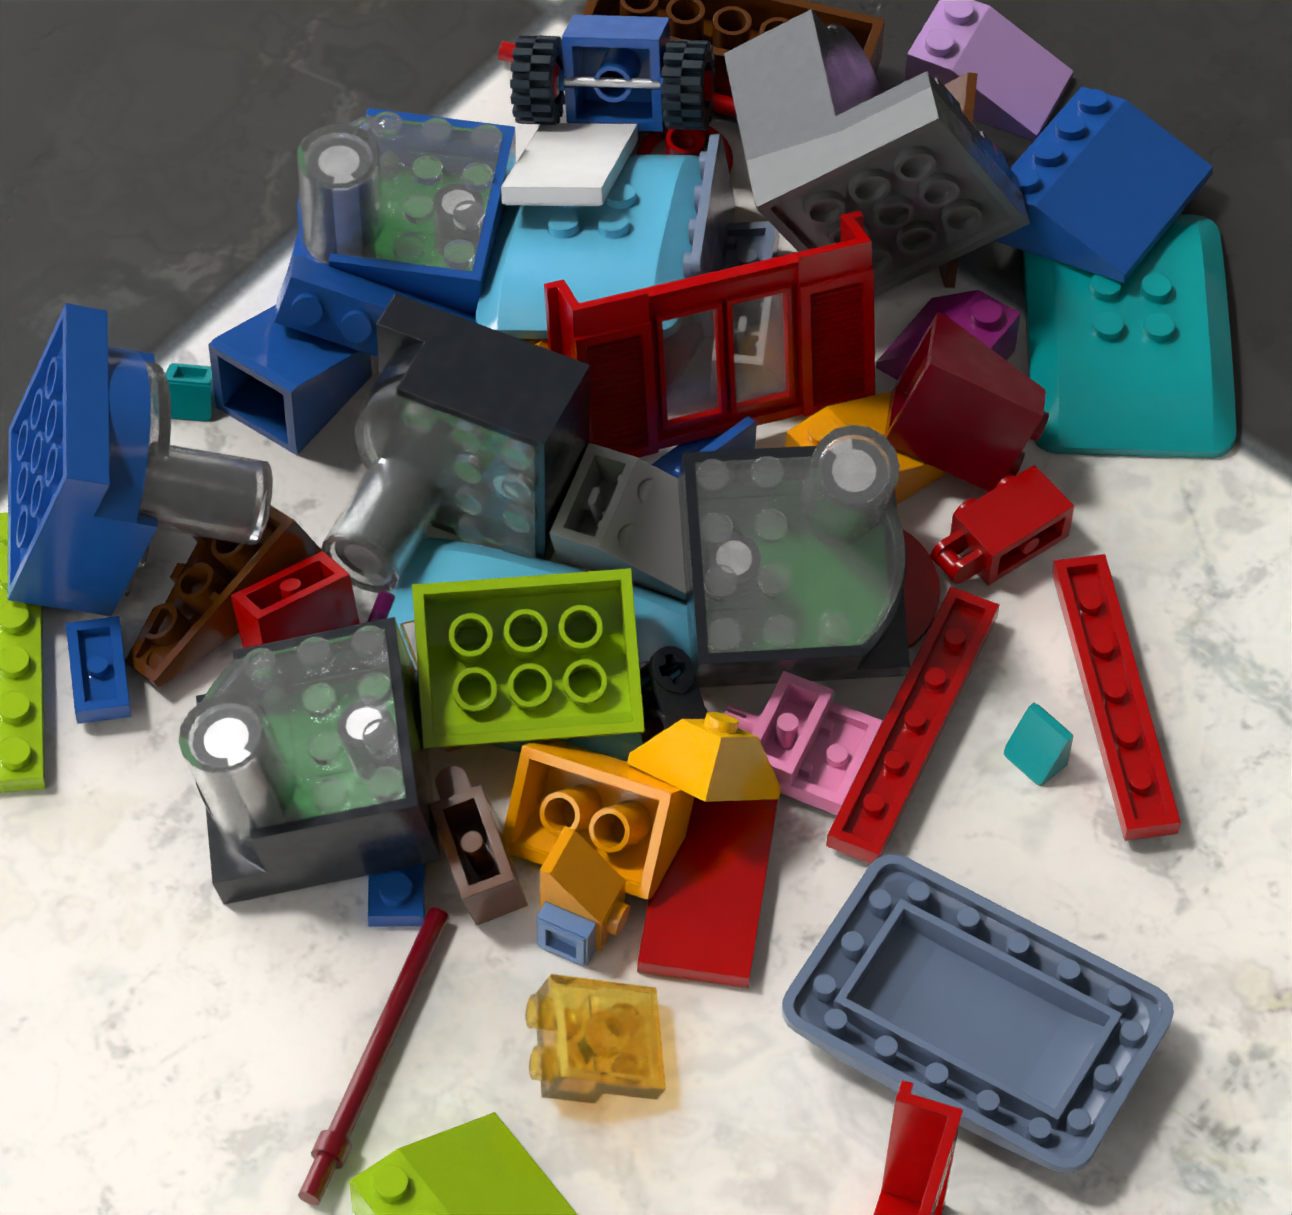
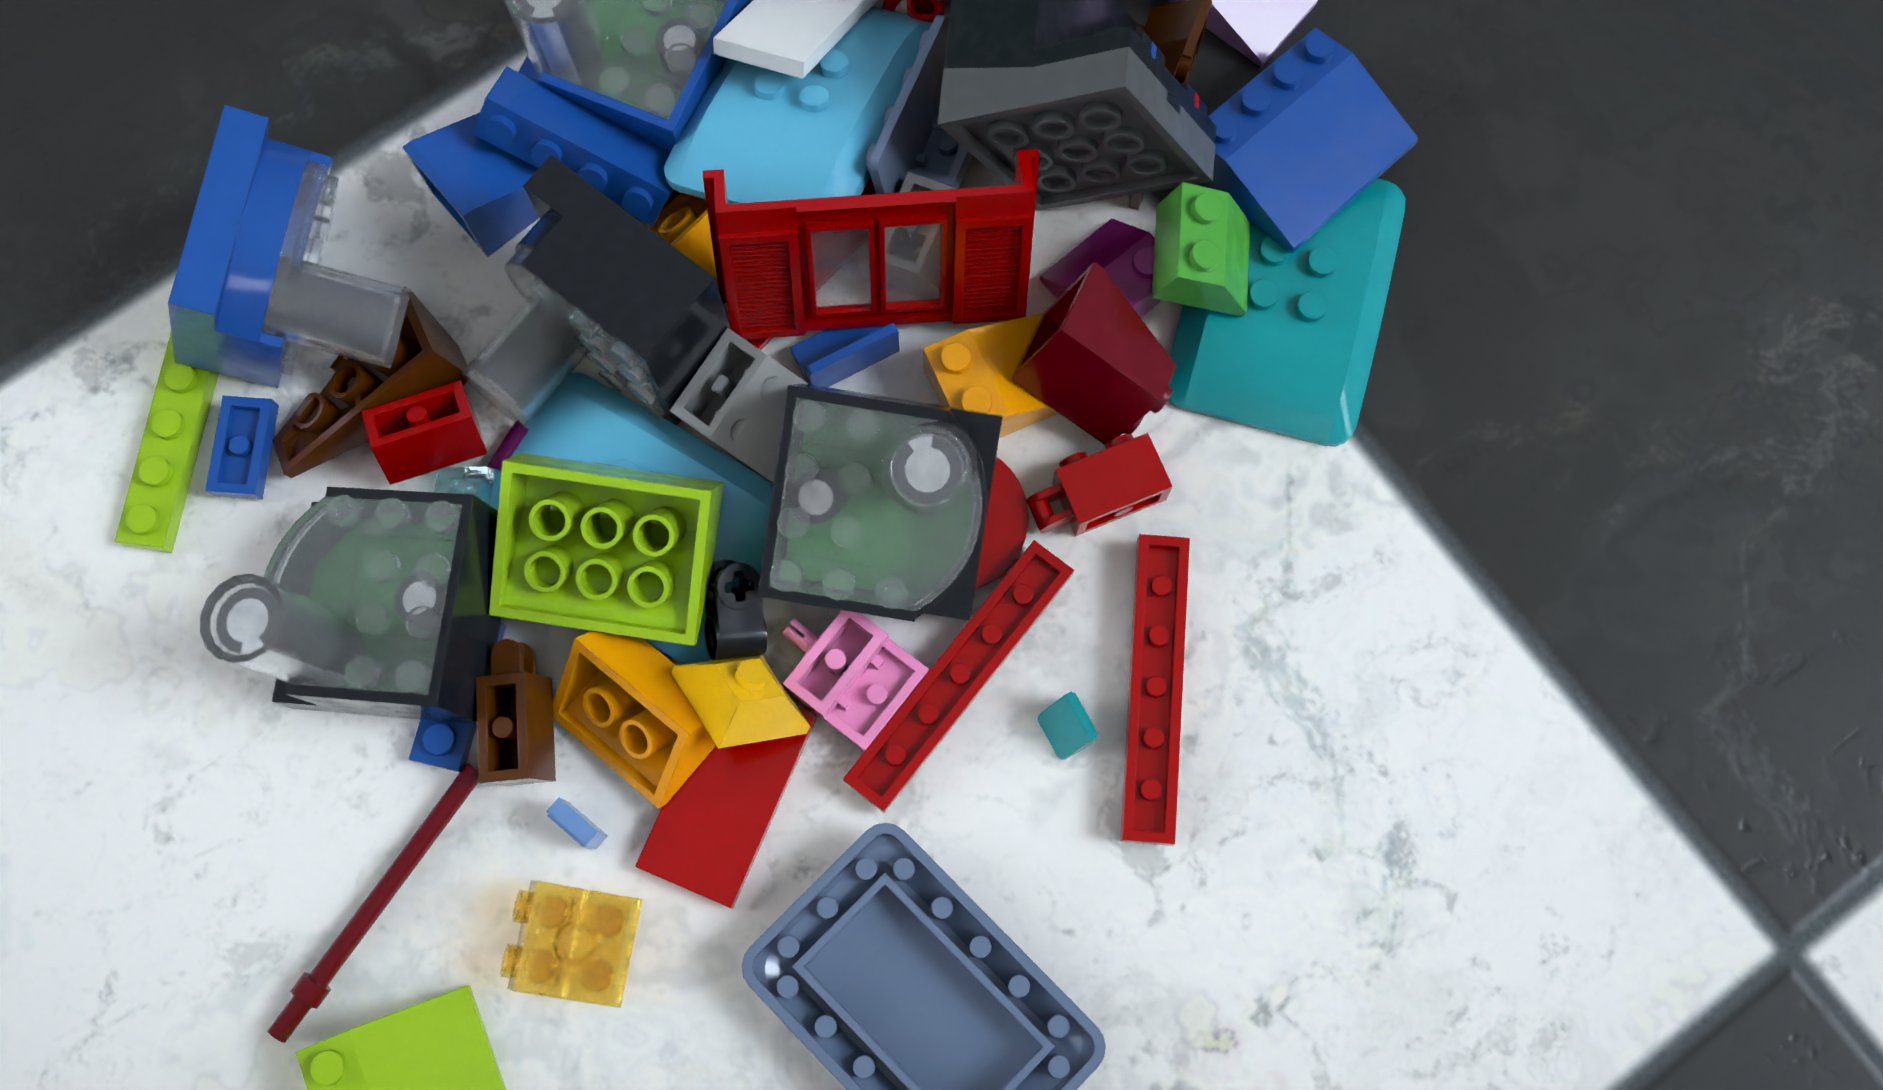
camera: 15 degrees right, 20 degrees up
(191, 391) = (398, 175): teal slope -> none
(584, 884) = (596, 793): light orange slope -> none
(1035, 289) = (1201, 250): none -> bright green slope

